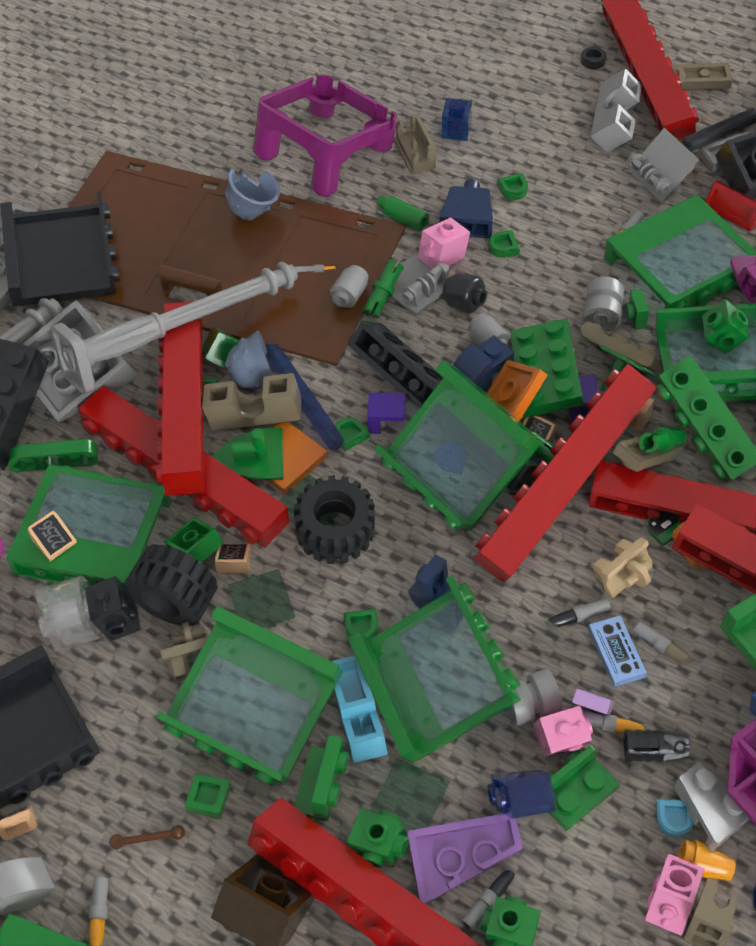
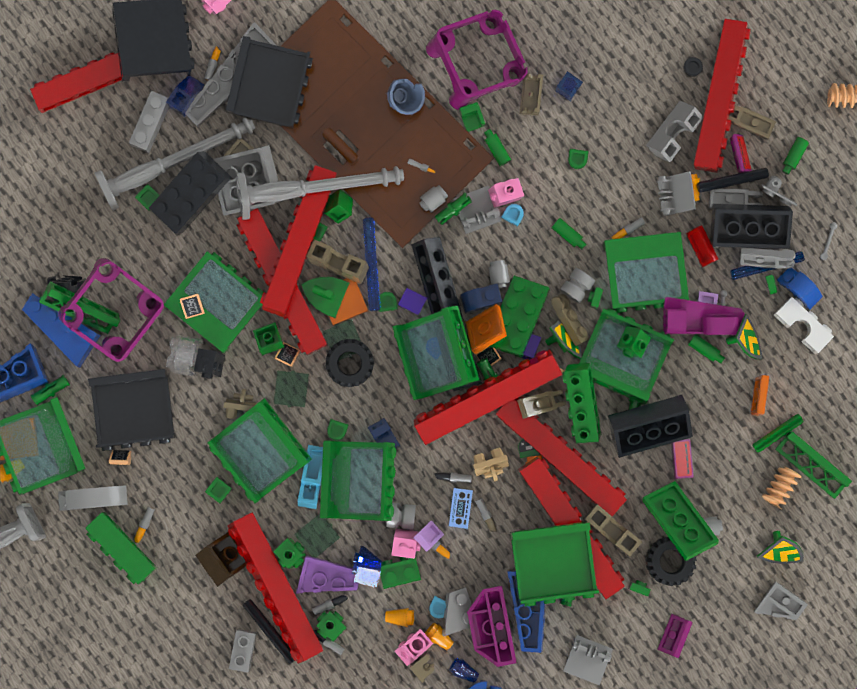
camera: 20 degrees right, 30 degrees up
(36, 456) = (218, 241): green beam -> none
(118, 841) = (166, 491): reddish brown hinge -> none
(171, 585) = (244, 367): black tyre -> none
(248, 362) = (346, 231): sand blue helmet -> none
(320, 779) = (276, 508): green bracket -> none
(352, 191) = (472, 117): none -> green panel
(464, 292) = (501, 234): black head -> none
(468, 265) = (513, 214): none -> medium azure tile
(470, 208) = (536, 168): dark blue torso -> none
(503, 244) = (546, 204): green tile -> none
(553, 261) = (568, 233): none -> green cylinder
(621, 860) = (401, 617): none -> light orange cone
(655, 745) = (449, 569): black hinge -> none
(662, 439) = (549, 405): green pin -> none
(707, 106) = (740, 153): none -> magenta slope

